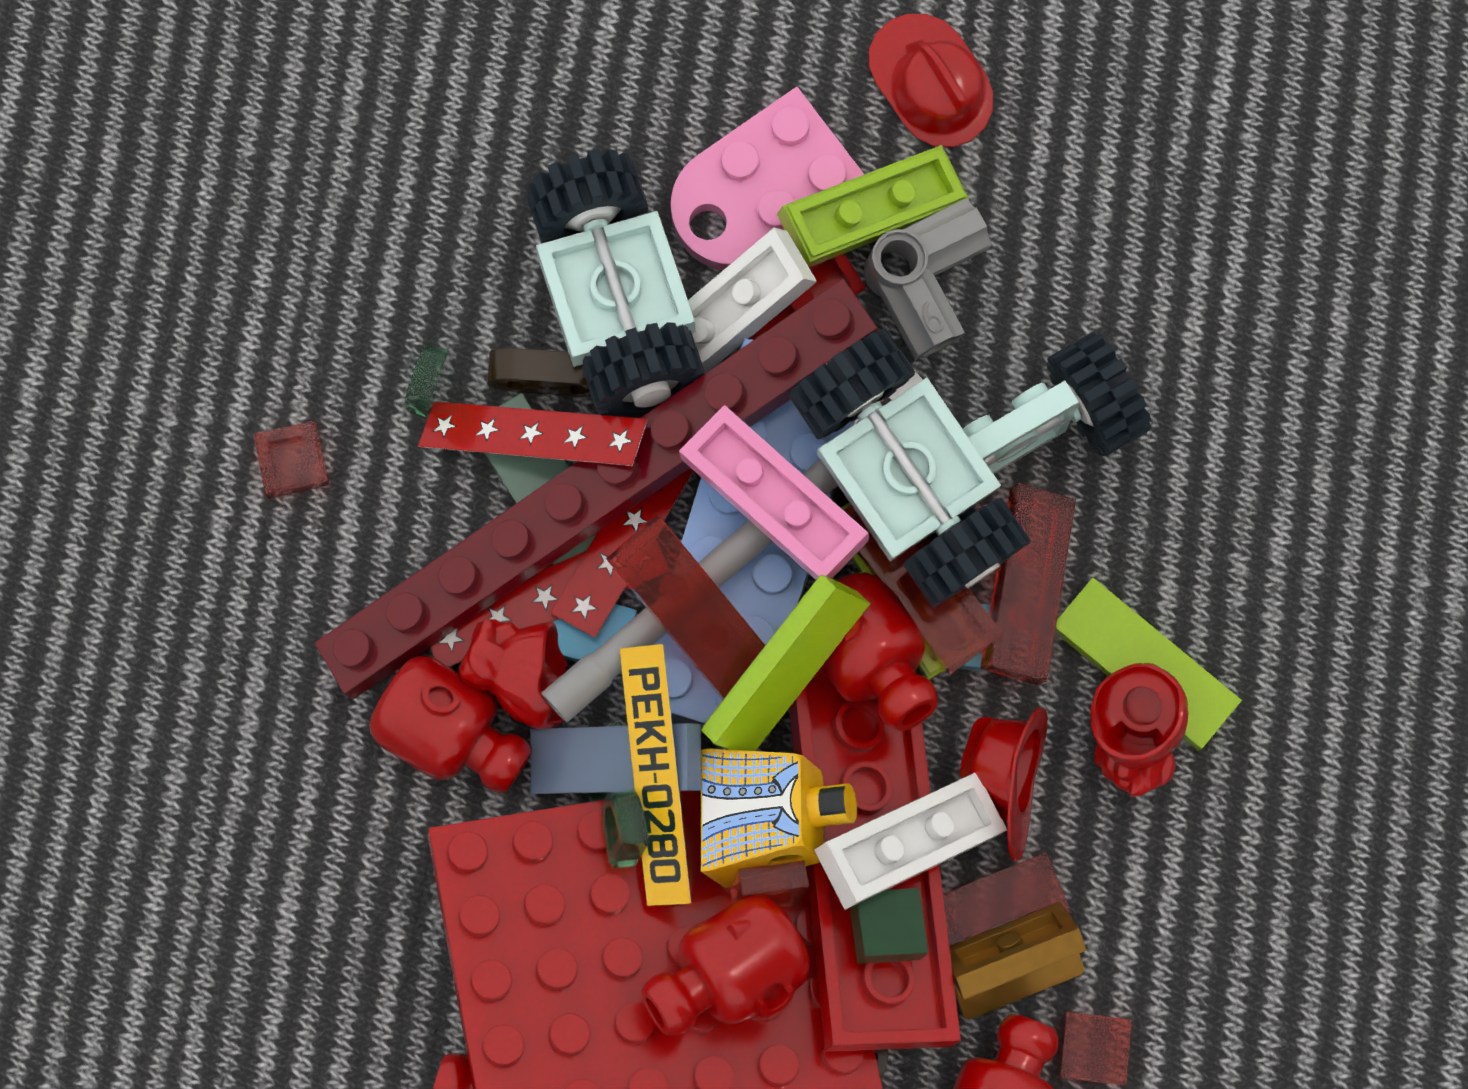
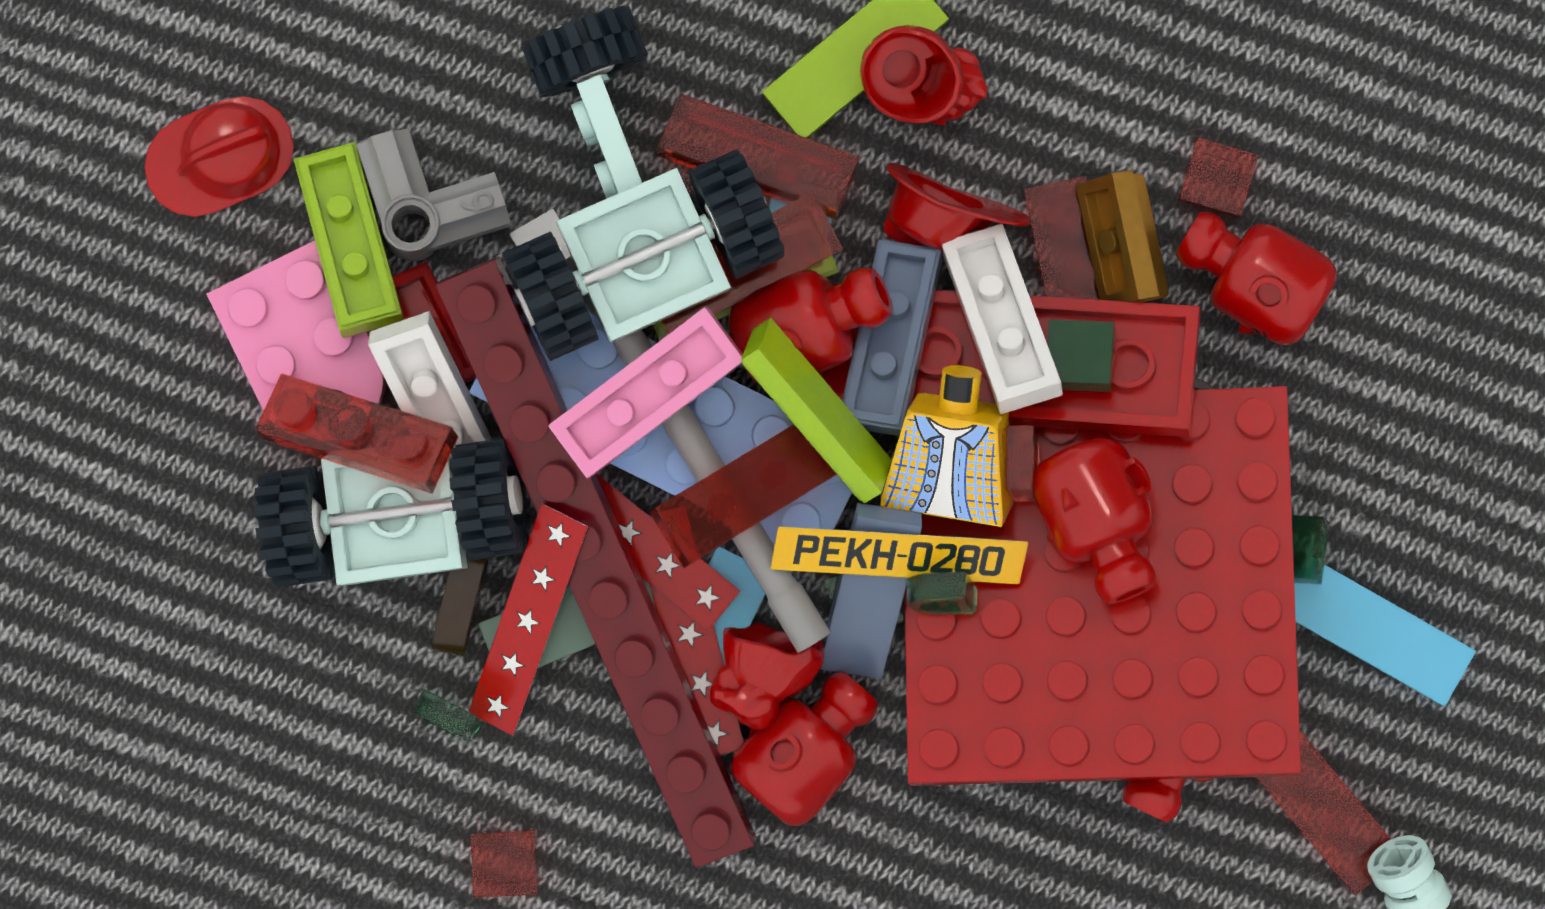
camera: 75 degrees left, 10 degrees up
(686, 238) = (356, 433): none -> clear red plate
(857, 740) = (890, 355): none -> sand blue tile

